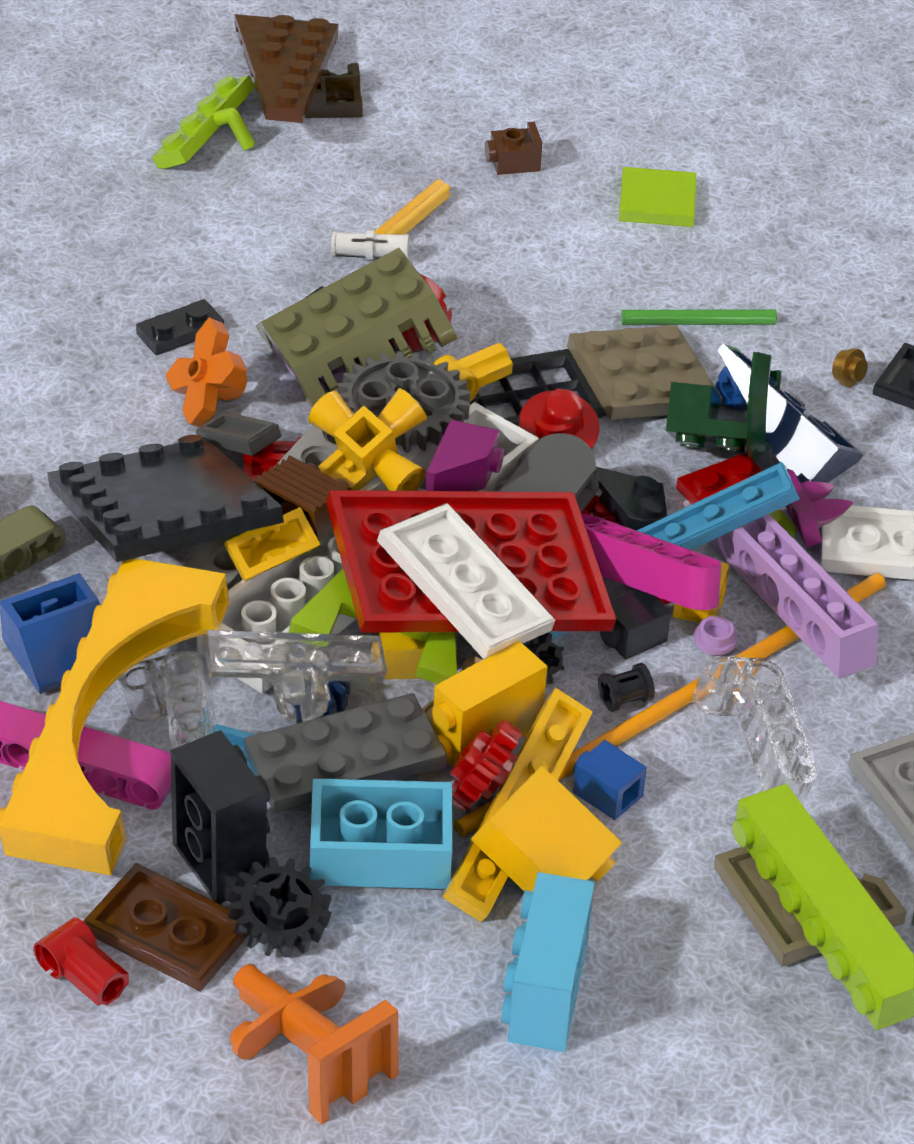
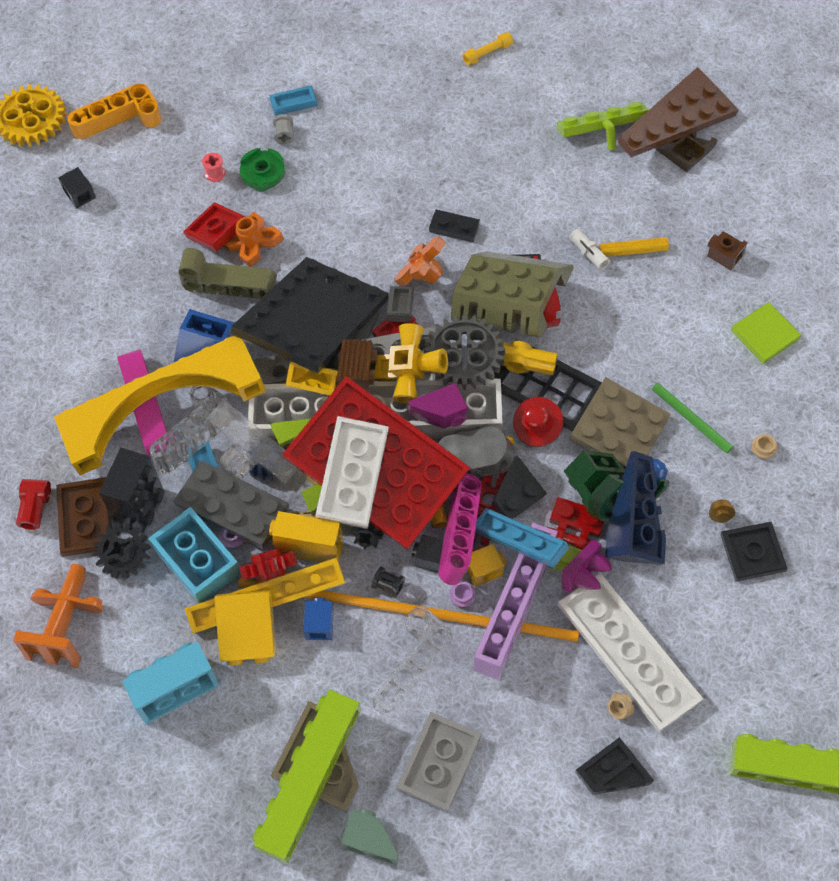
camera: 55 degrees right, 20 degrees up
(803, 287) = (764, 446): none -> tan plate

